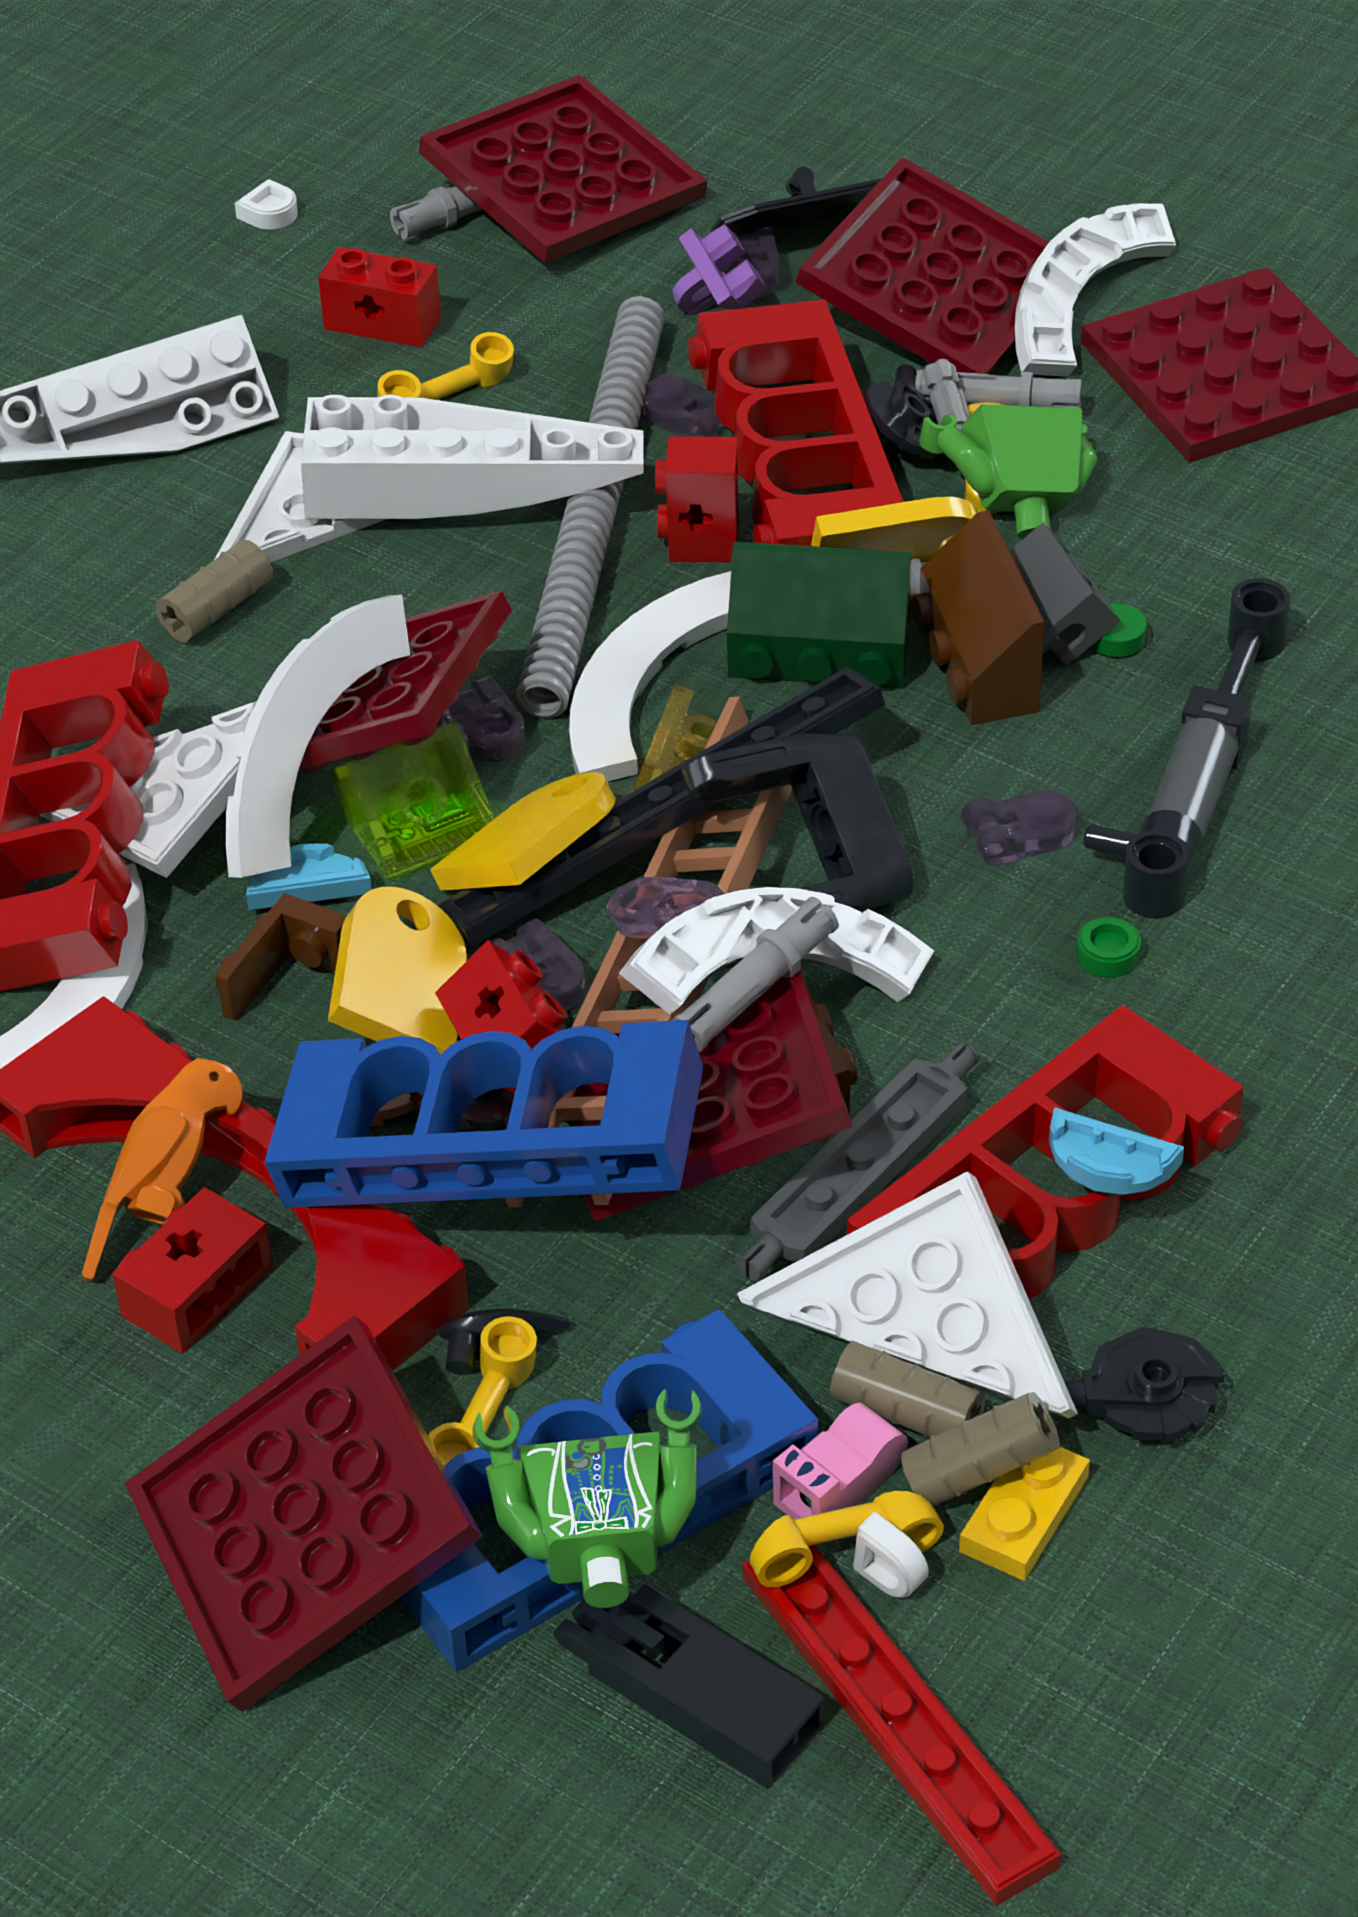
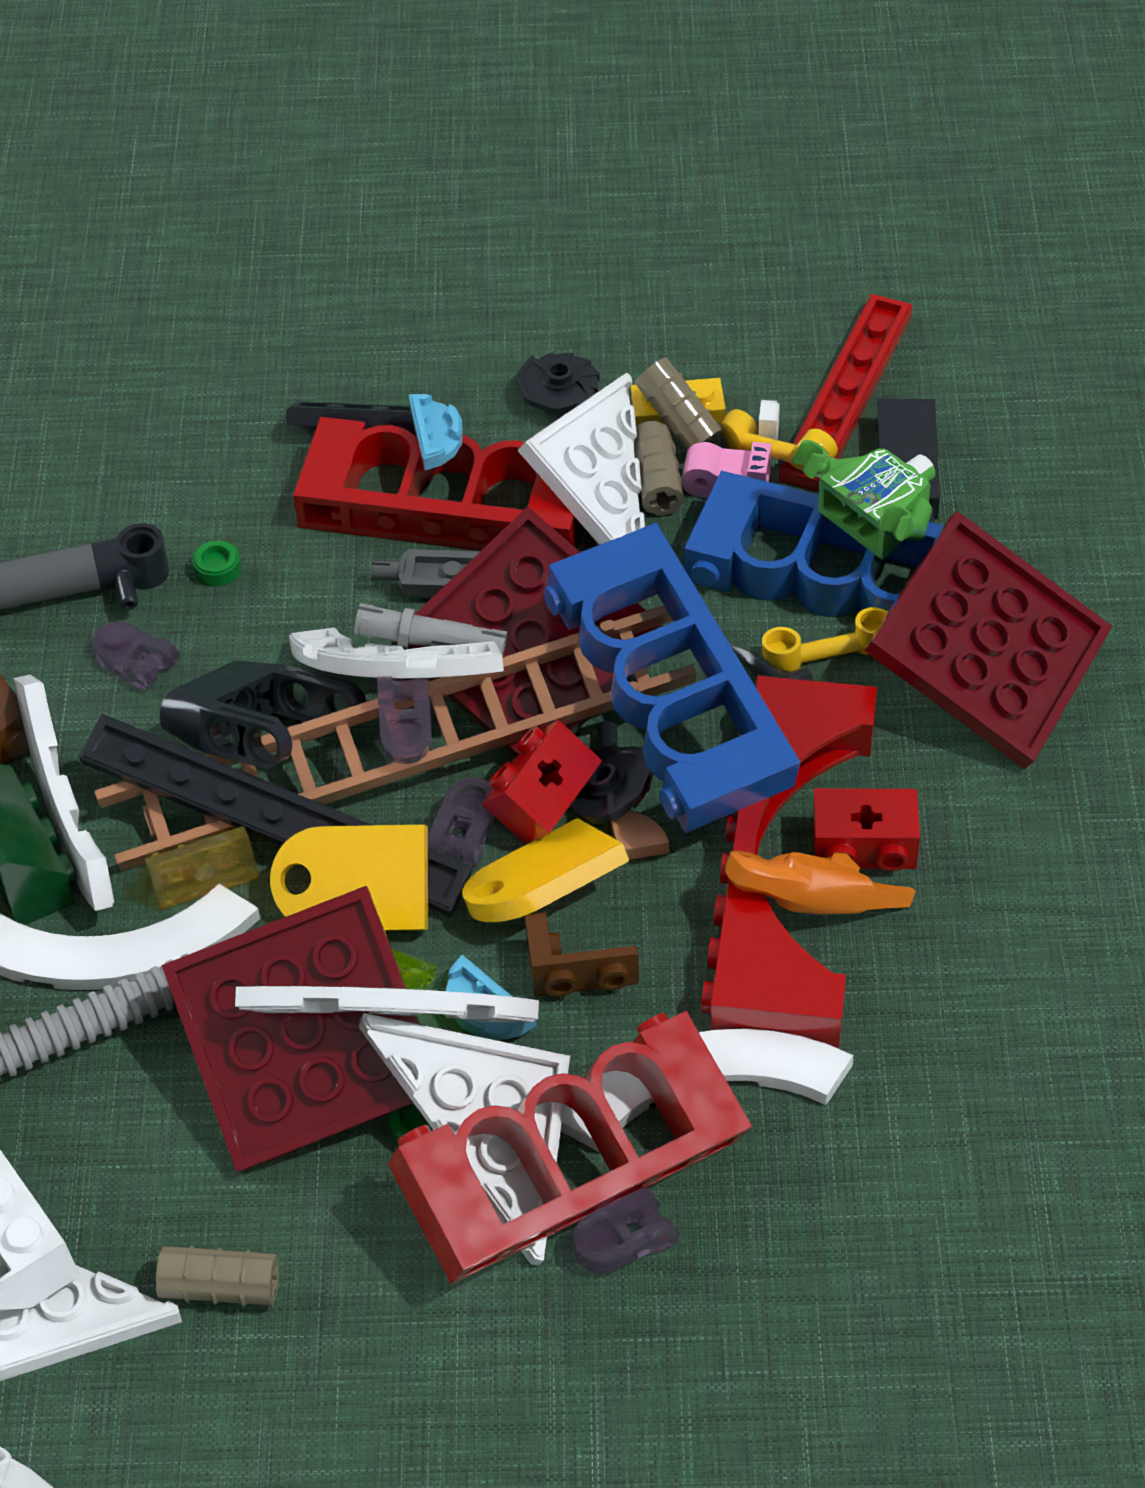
camera: 125 degrees left, 5 degrees up
(933, 668) = (62, 808): none -> white tile
(1247, 1159) = (309, 413): none -> black tile

